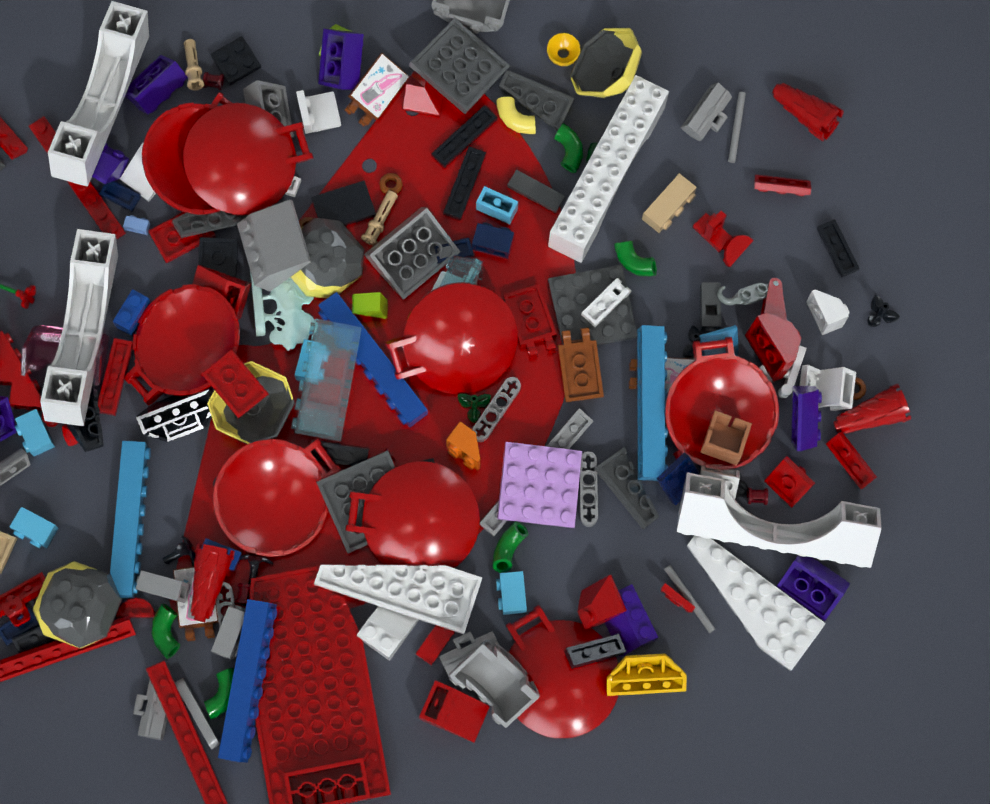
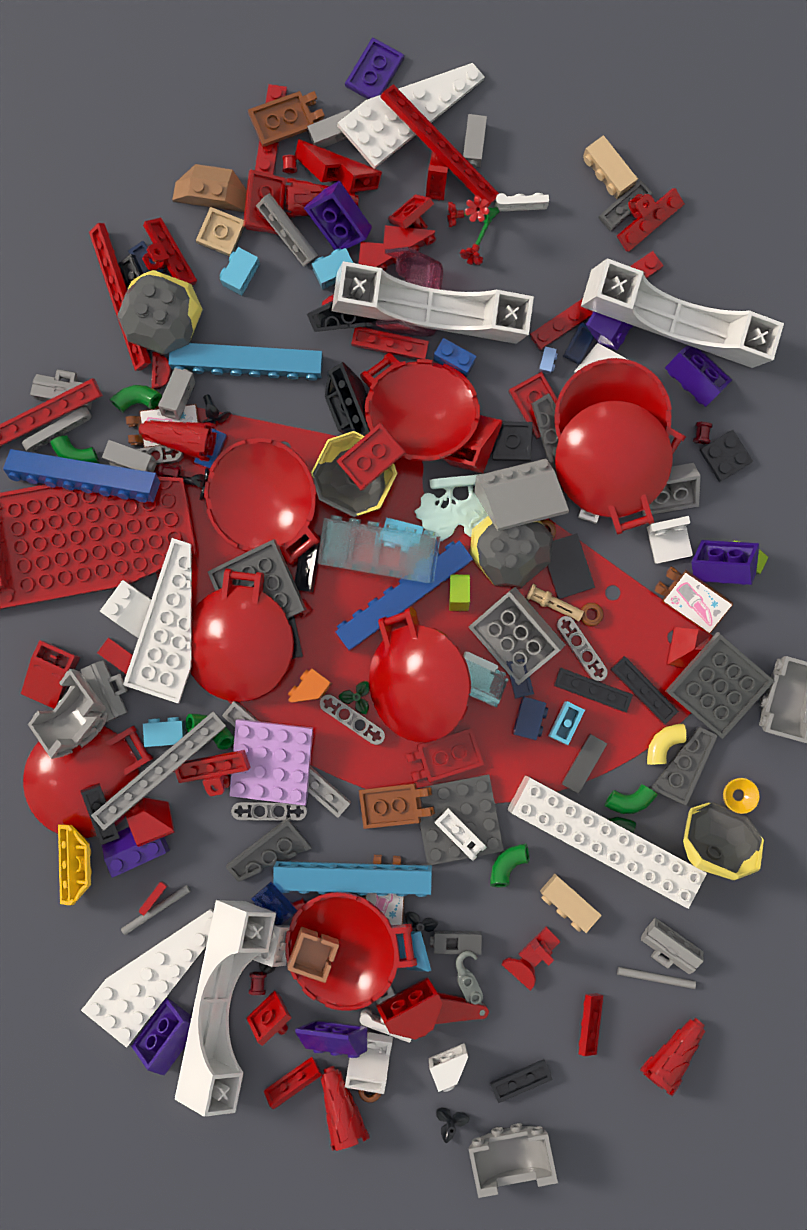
camera: 90 degrees right, 10 degrees up
(193, 70) = (712, 411): tan pin -> none
(426, 195) = (579, 650): none -> light grey beam
(548, 541) = (213, 770): none -> red plate
(550, 590) = (158, 771): none -> light grey plate
(907, 250) = (511, 1158): none -> light grey cylinder

